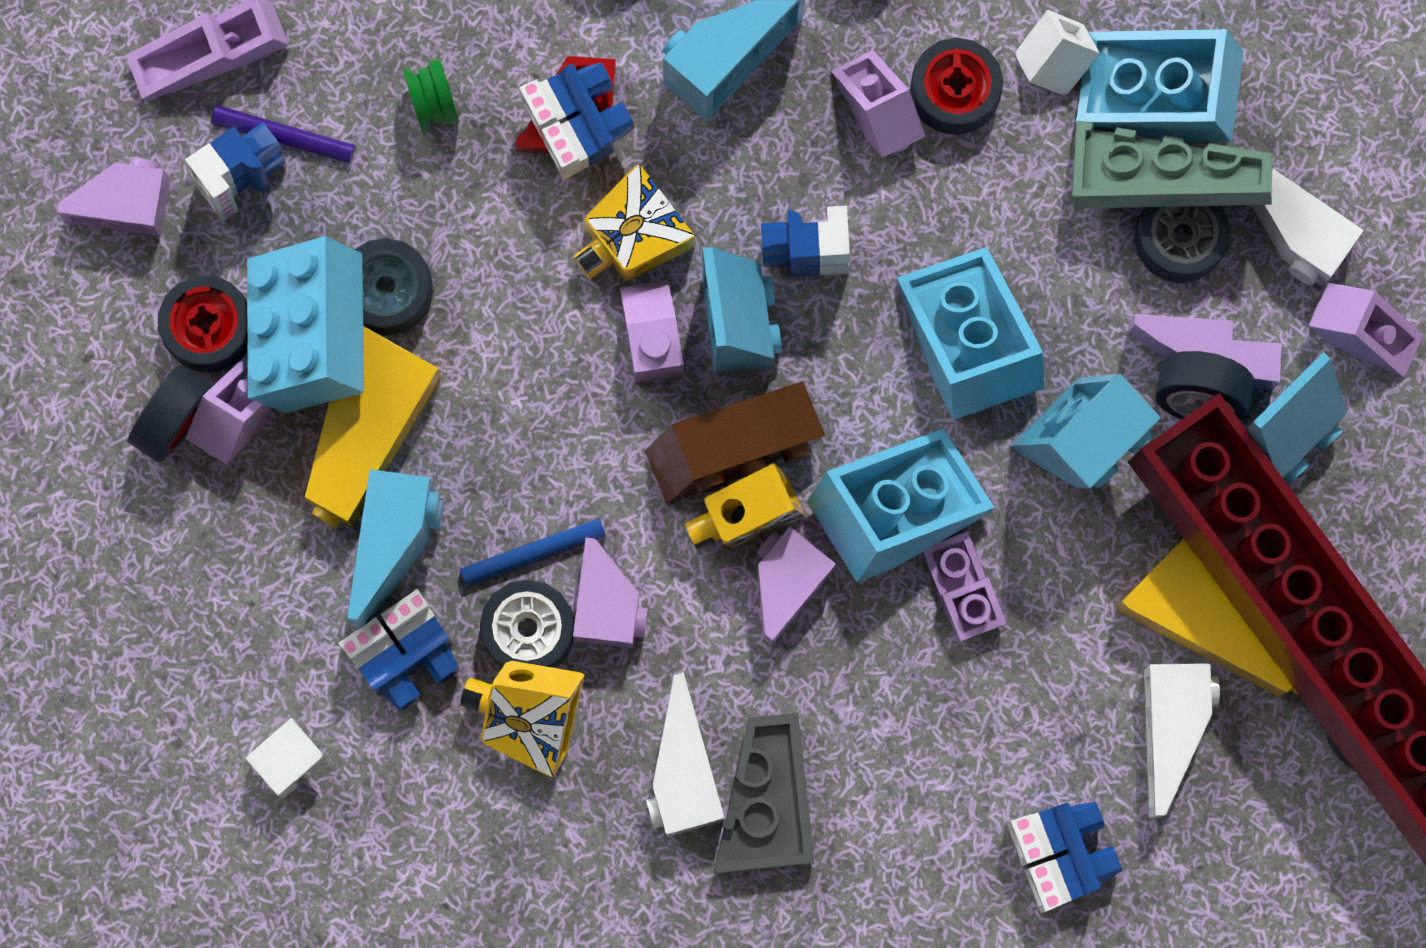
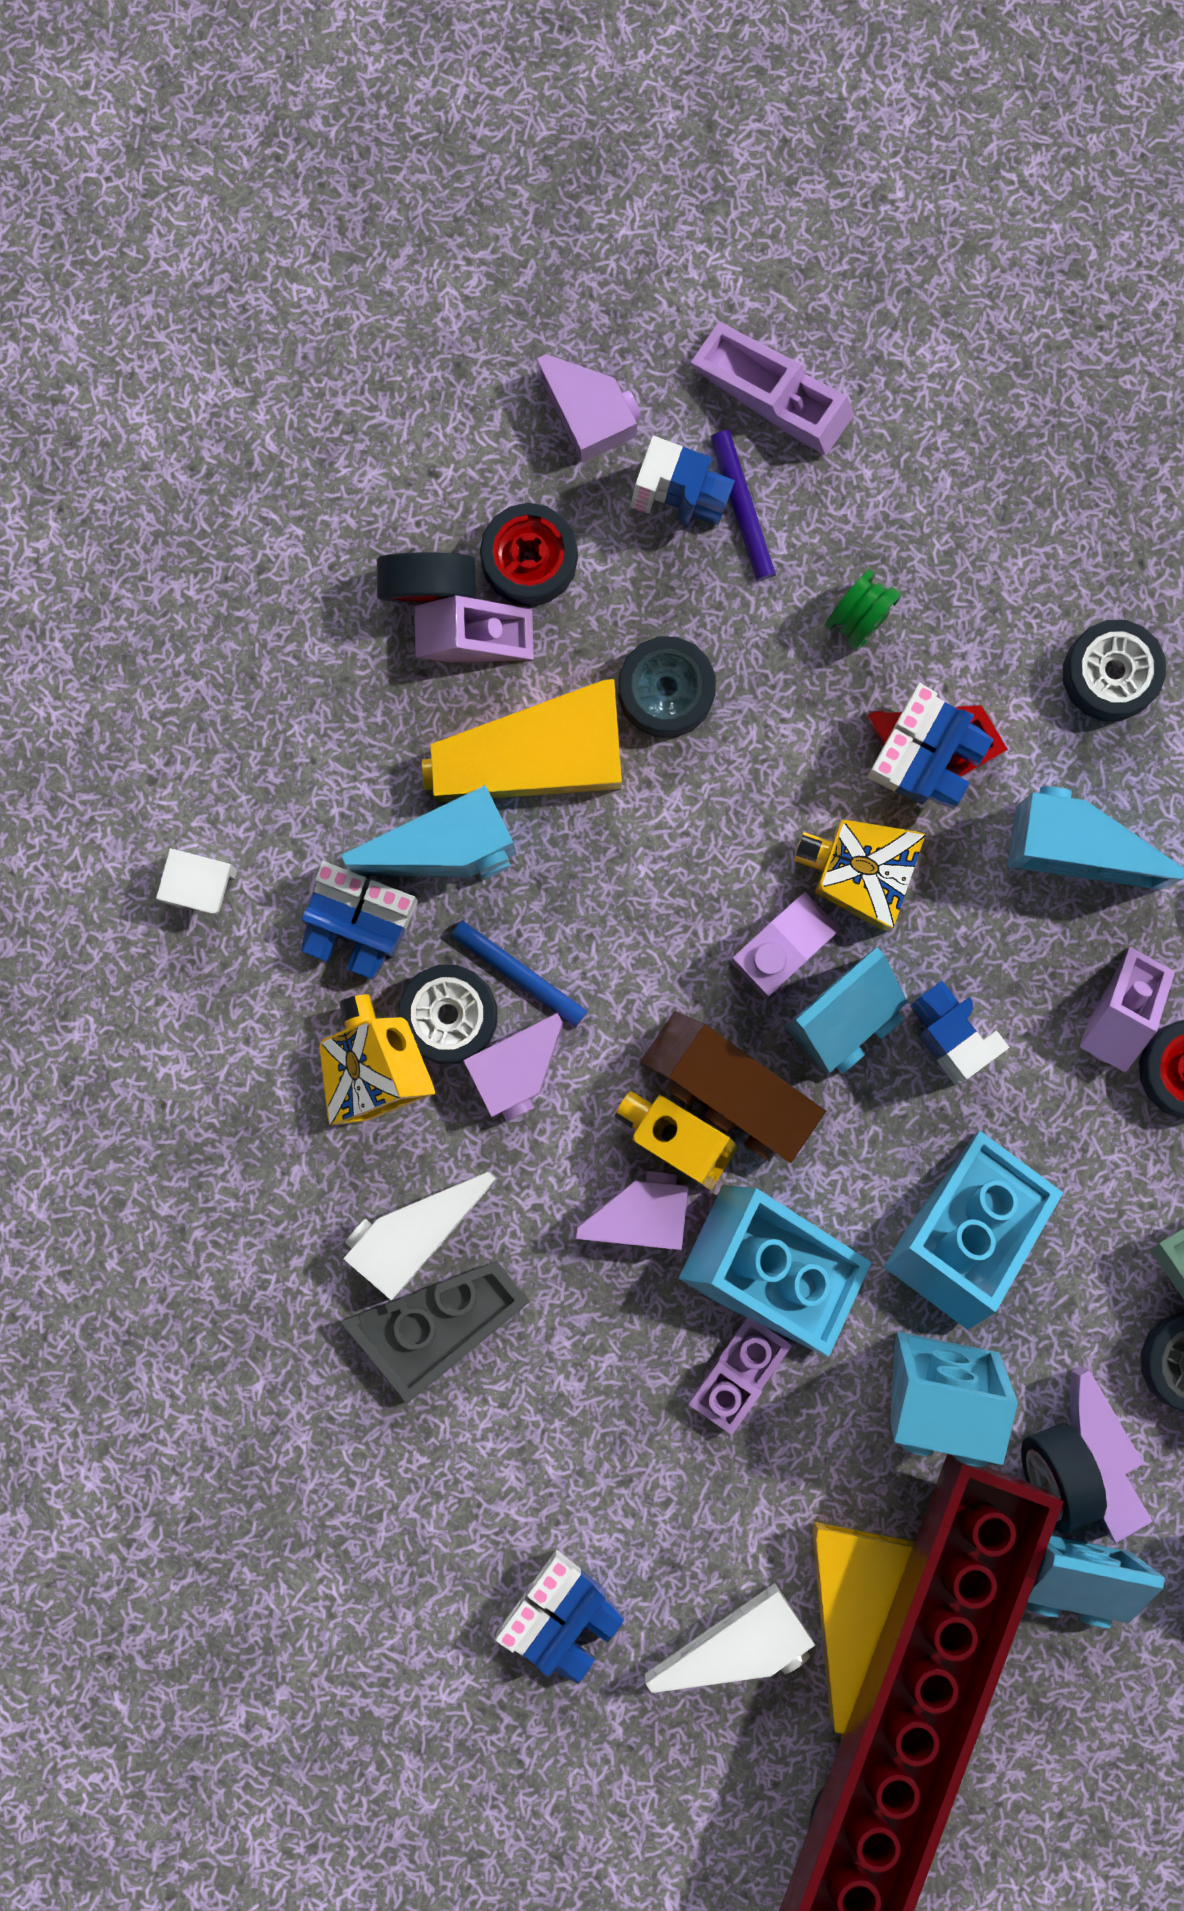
camera: 60 degrees right, 5 degrees up
(305, 325) = (580, 641): medium azure brick -> none

